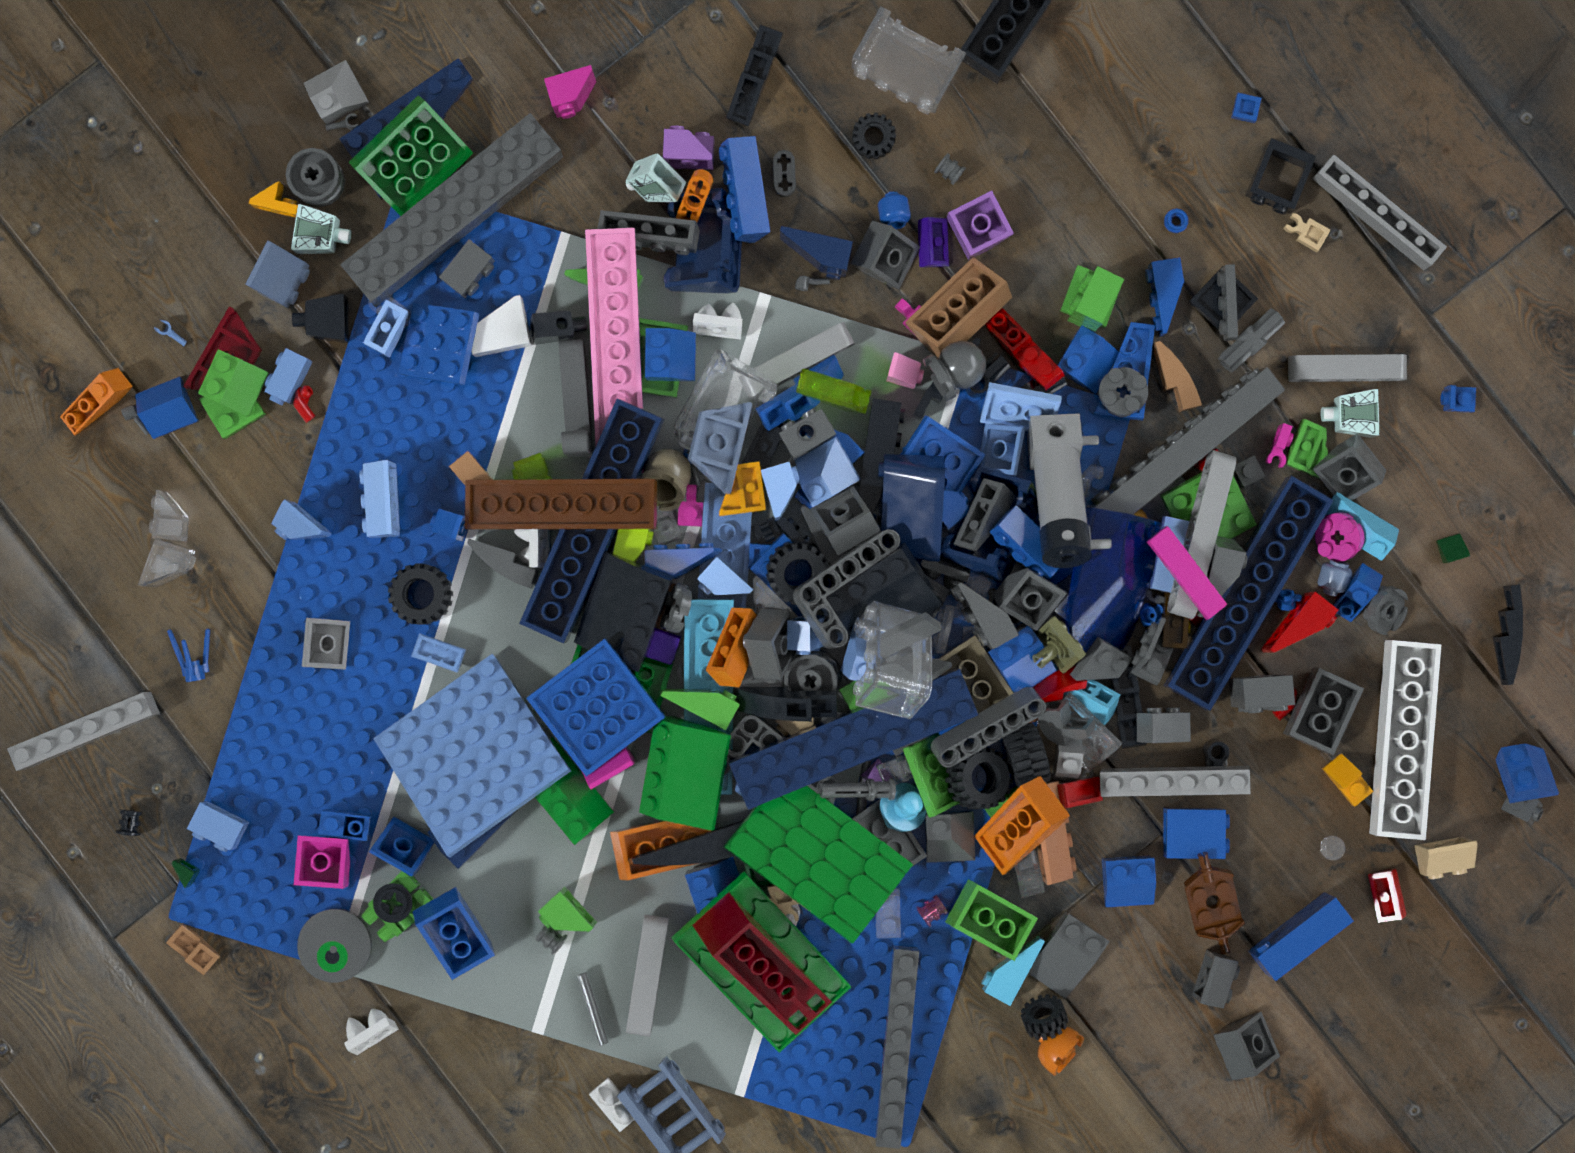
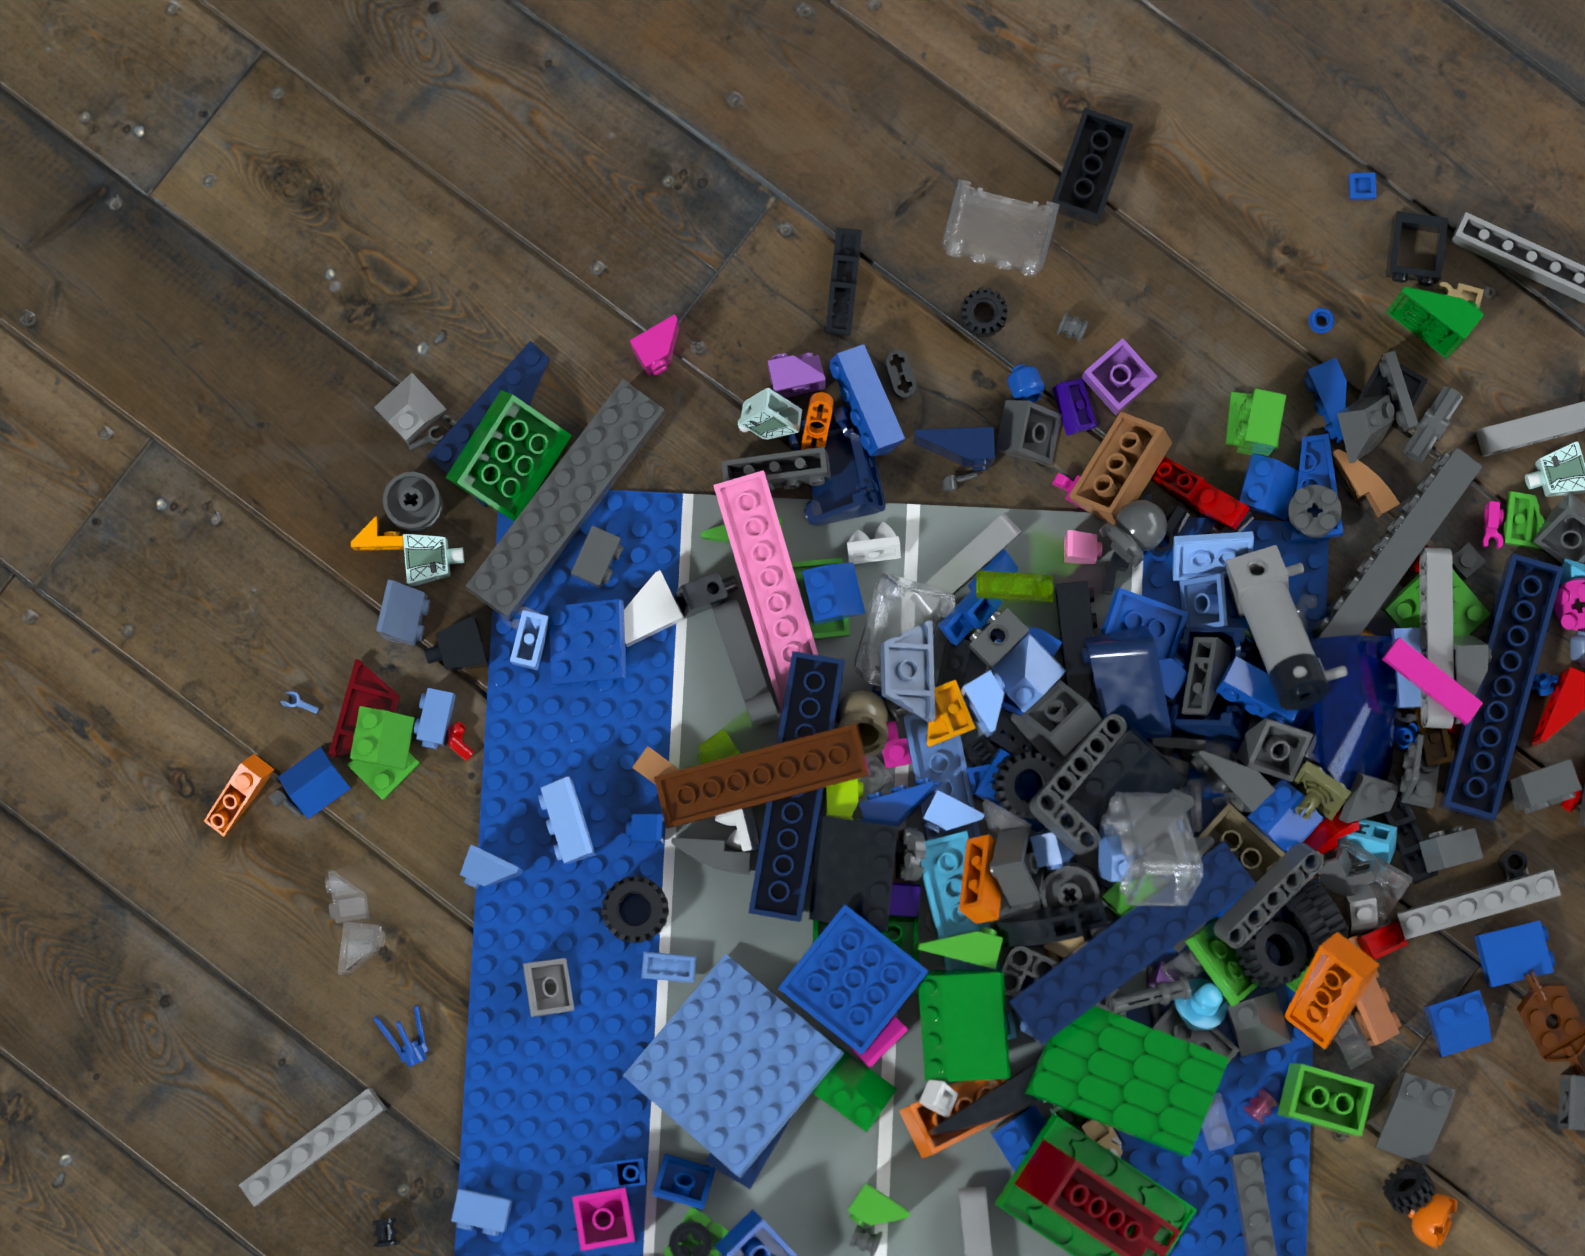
camera: 15 degrees left, 5 degrees down
(646, 831) = (938, 1097): none -> white slope
(1009, 975) = (1360, 1154): medium azure slope -> none
(1190, 325) = (1365, 425): none -> dark grey slope
(1279, 243) = (1435, 318): none -> green slope

